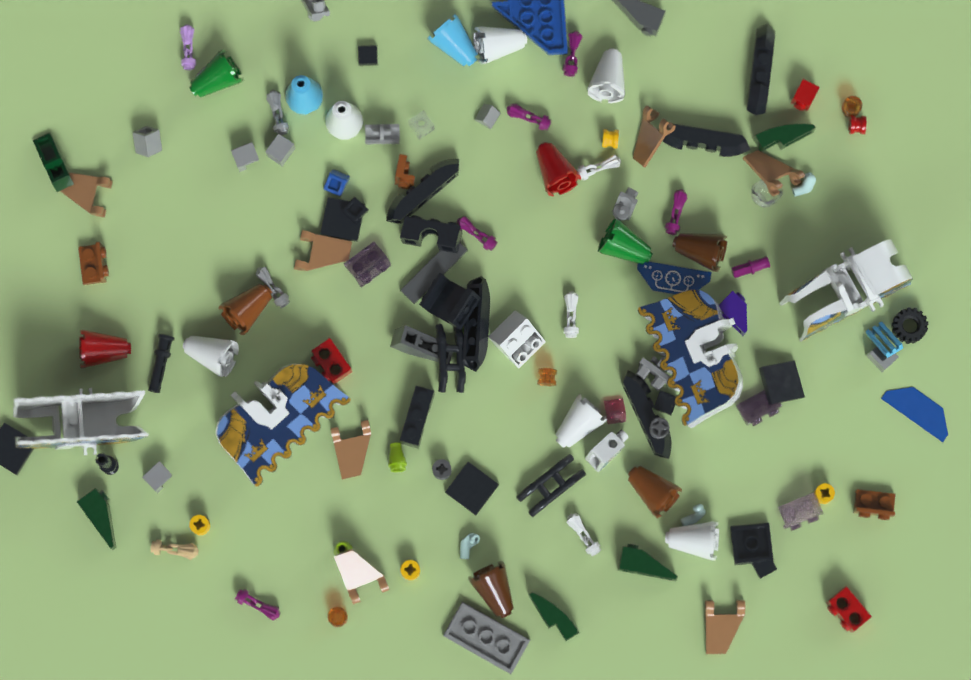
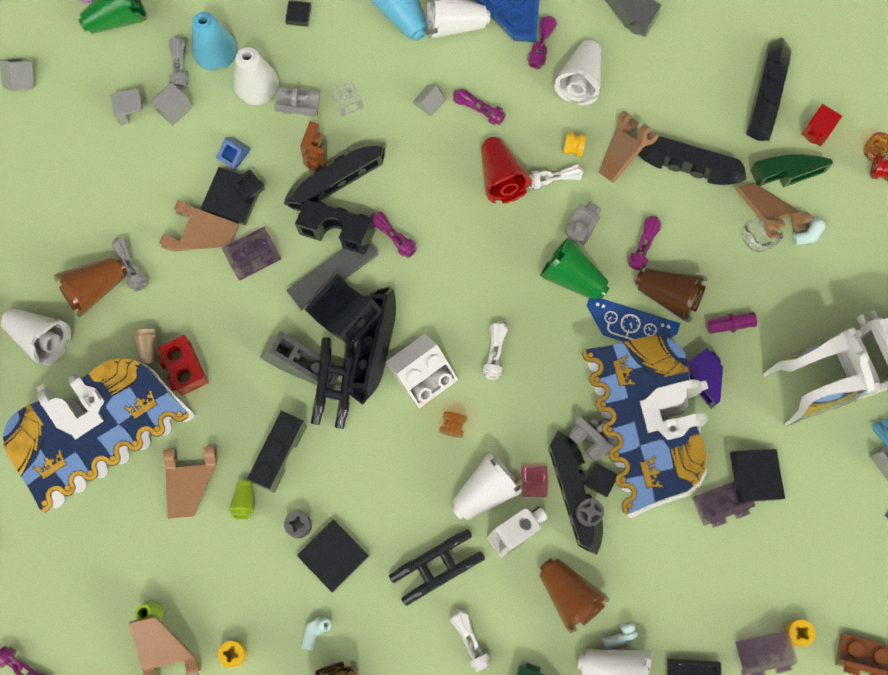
camera: 10 degrees right, 5 degrees down
(299, 349) = (146, 345): none -> tan cone

